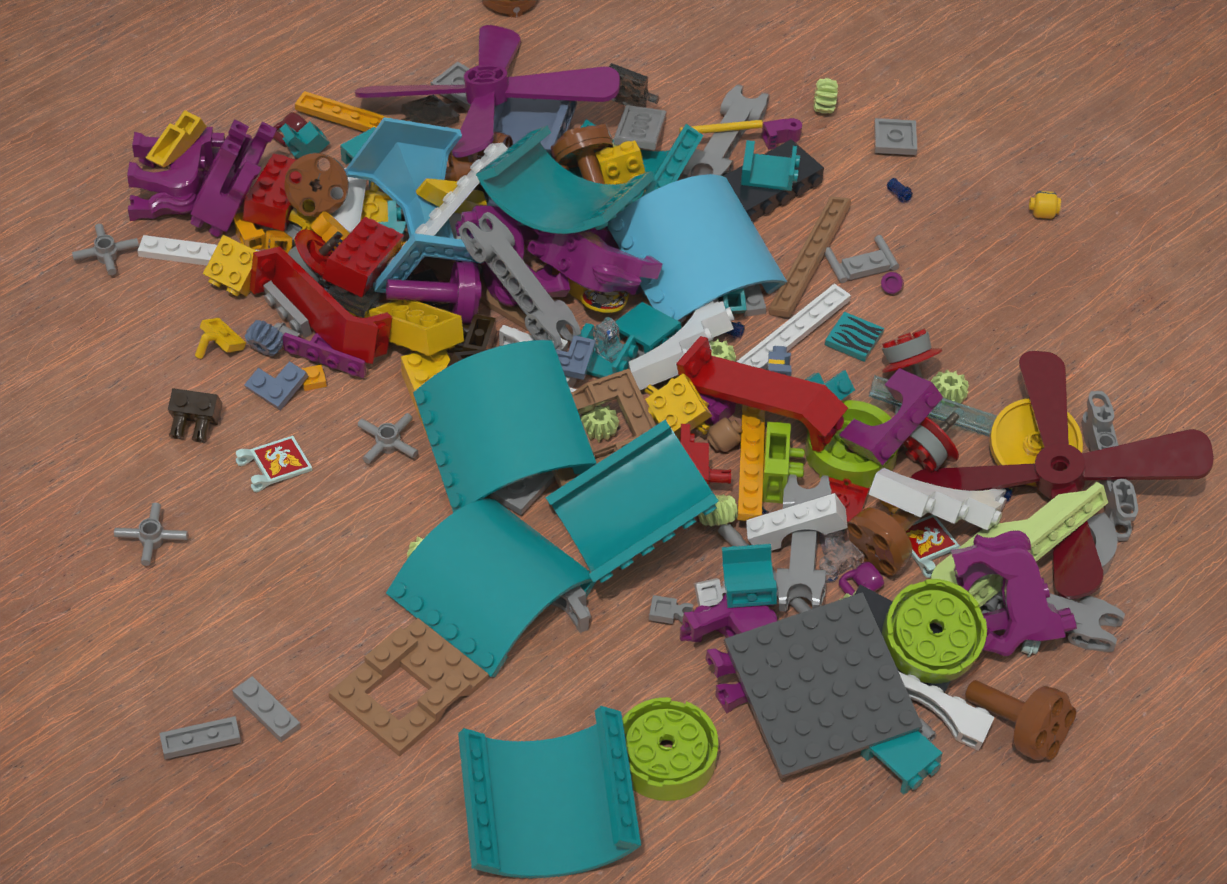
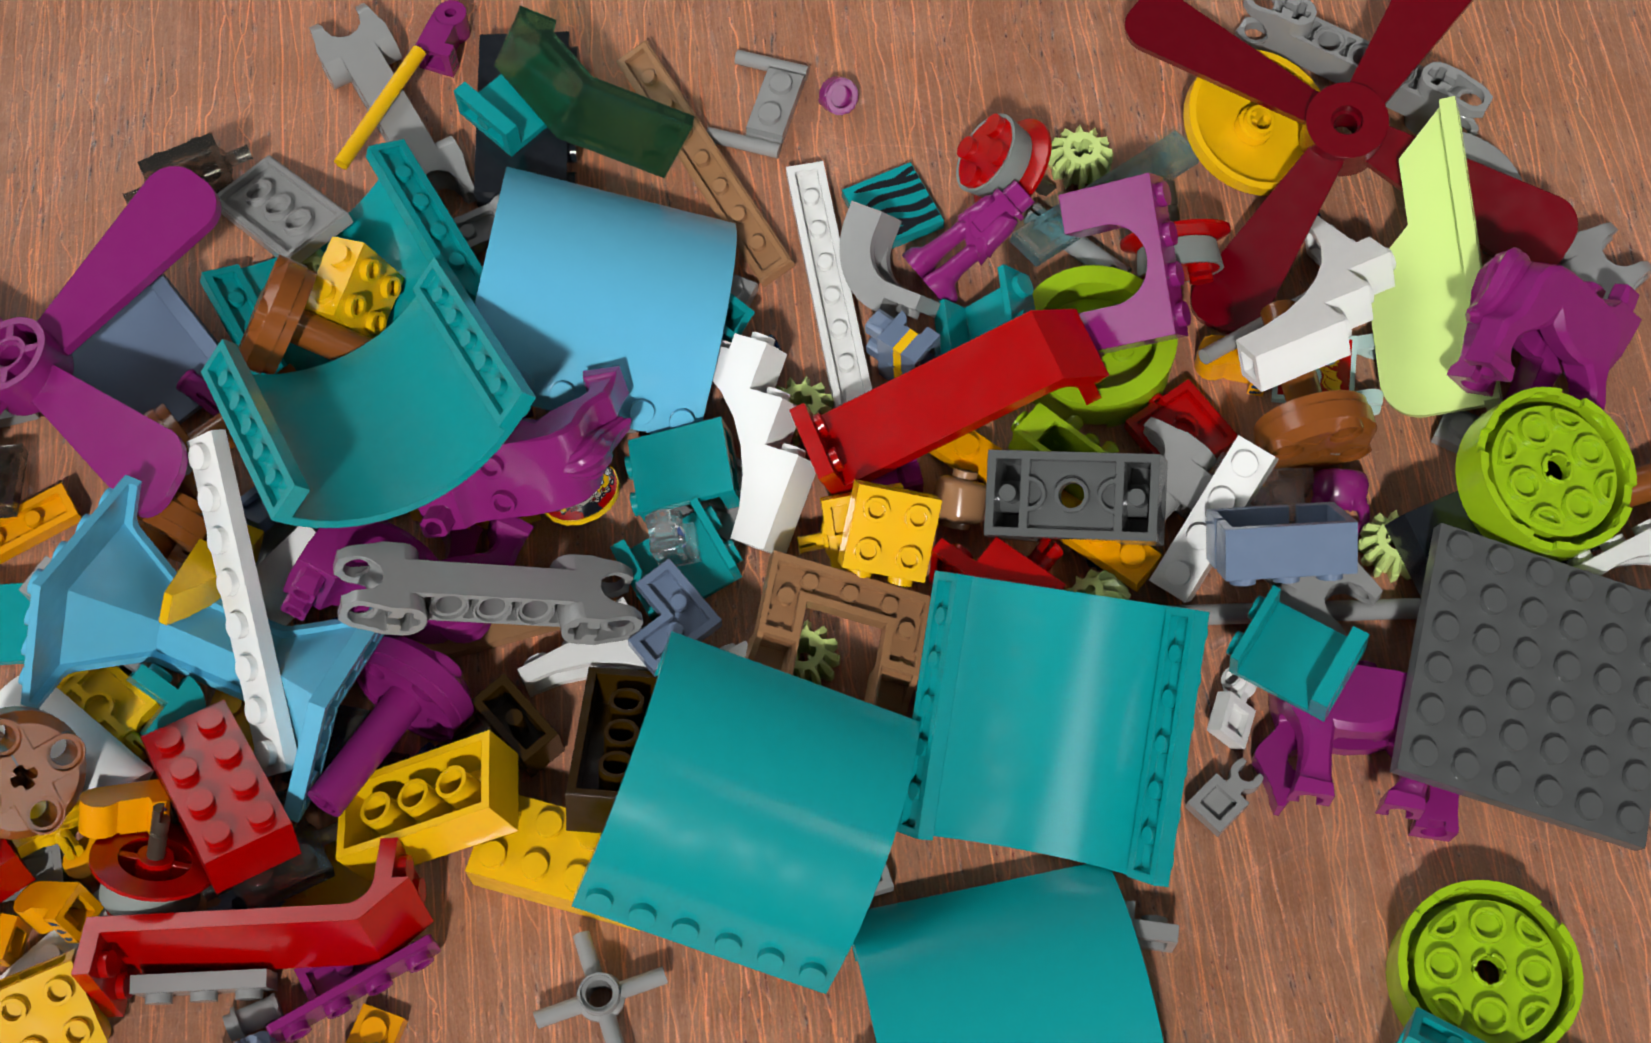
camera: 50 degrees left, 15 degrees up
(753, 456) = (1120, 501): none -> dark grey plate
(785, 194) = (584, 107): none -> clear green windscreen
(794, 537) = (1263, 545): none -> sand blue piece
(812, 338) = (866, 265): none -> light grey arch
(862, 364) = (984, 229): none -> magenta piece

